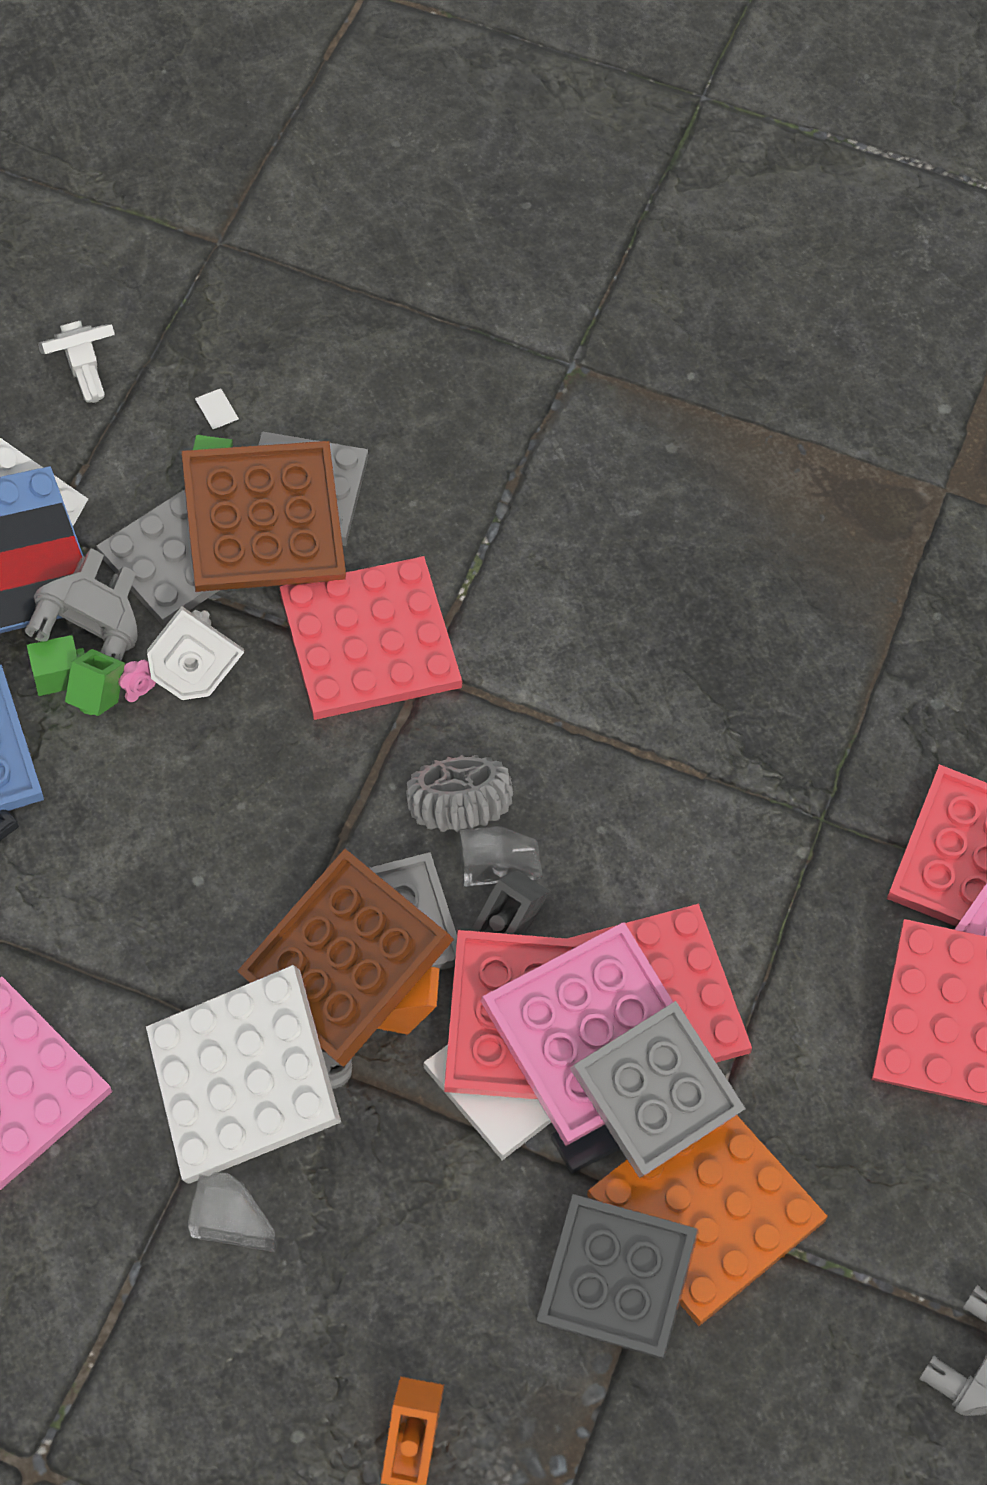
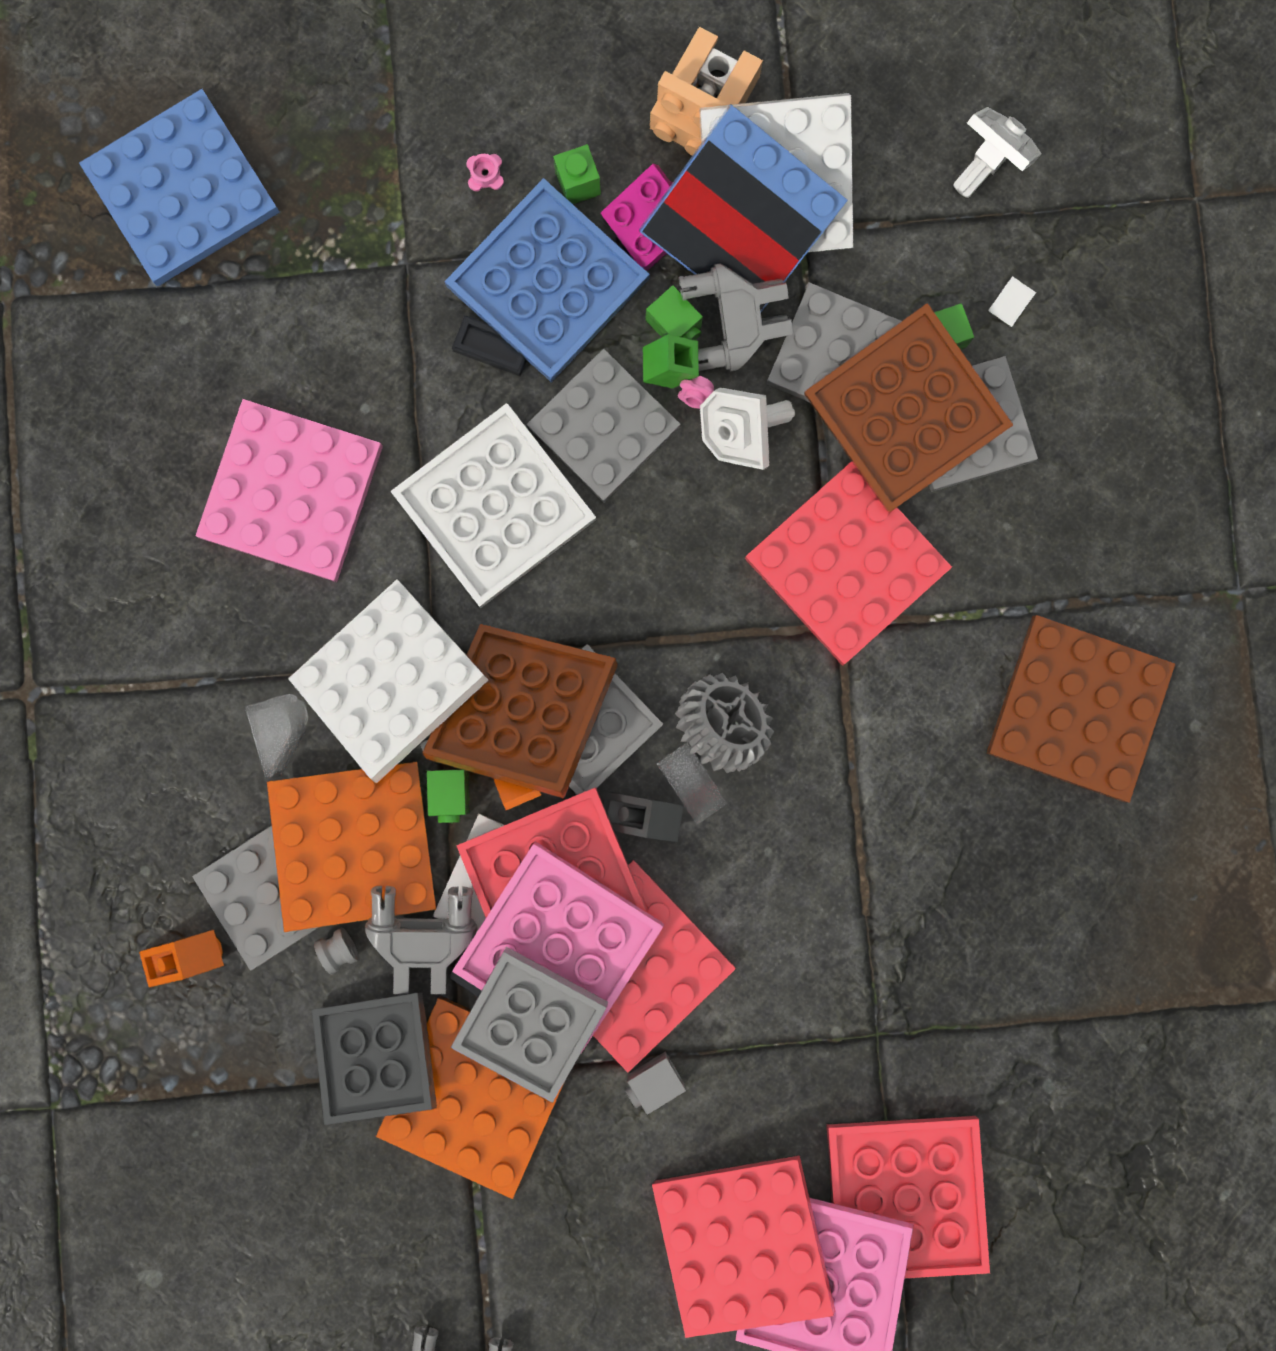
camera: 65 degrees right, 25 degrees up
(114, 775) = (603, 425): none -> light grey plate
(129, 904) = (493, 505): none -> white plate
(388, 1079) = (448, 794): none -> bright green brick
(389, 1198) = (342, 839): none -> orange plate
(392, 1311) = (247, 899): none -> light grey plate
(488, 1265) = (336, 951): none -> light grey wheel
(524, 1168) = (420, 941): none -> light grey connector
(607, 522) = (1081, 708): none -> dark orange plate
(774, 1024) = (654, 1083): none -> light grey brick

